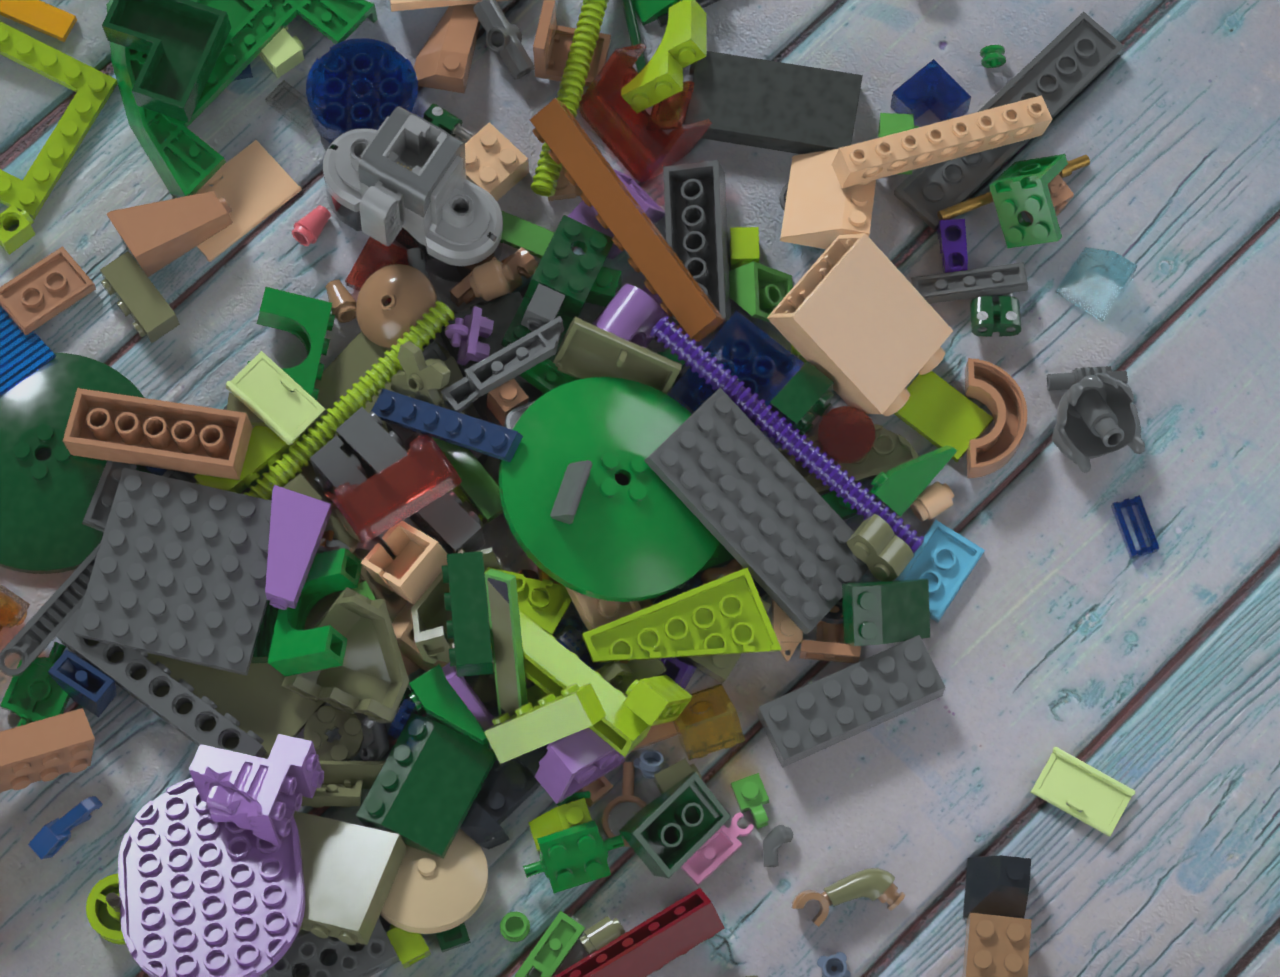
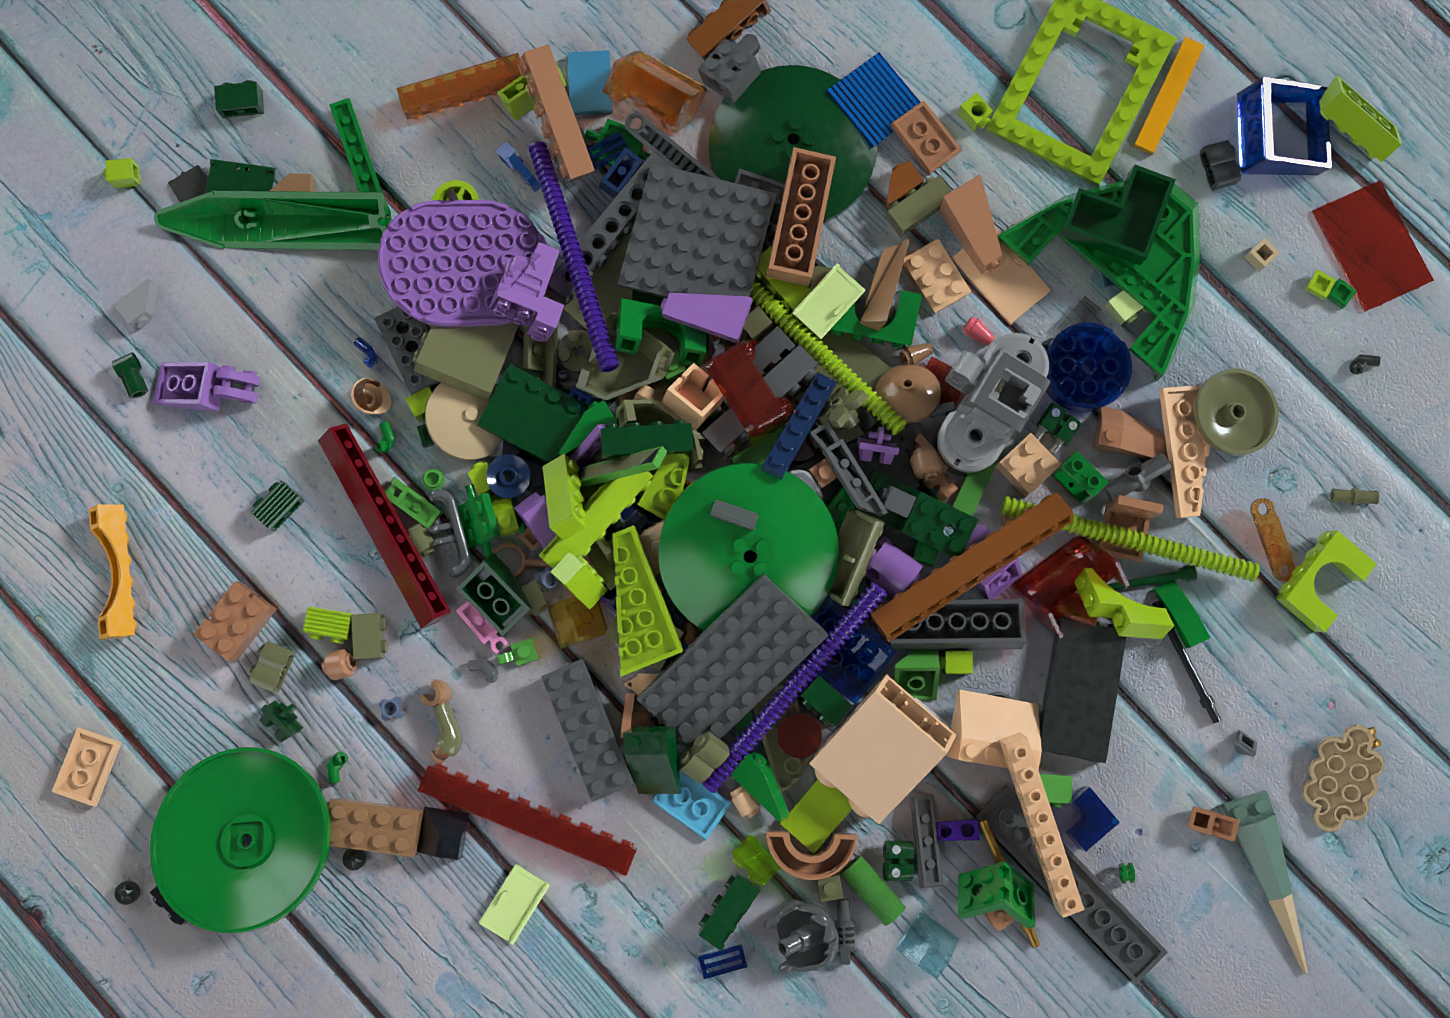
camera: 90 degrees right, 10 degrees up
(38, 681) = (617, 136): none -> clear blue tile
(107, 320) = (902, 181): none -> dark orange slope
(201, 733) = (573, 257): none -> dark purple piece
(235, 278) = (936, 276): none -> light nougat plate
(251, 334) = (884, 286): none -> medium nougat wedge
(497, 105) = (1083, 476): none -> green window
(511, 801) = (508, 465): none -> dark blue dish
(514, 854) = (478, 477): none -> lime brick
(588, 887) = (457, 530): none -> dark grey piece
(971, 778) = (527, 819): none -> clear red brick
(1005, 487) = (755, 860): none -> clear neon green brick
(1036, 343) = (873, 889): none -> bright green piece
(1037, 395) = (829, 888): none -> olive brick
(1071, 517) = (727, 910): none -> dark green wedge

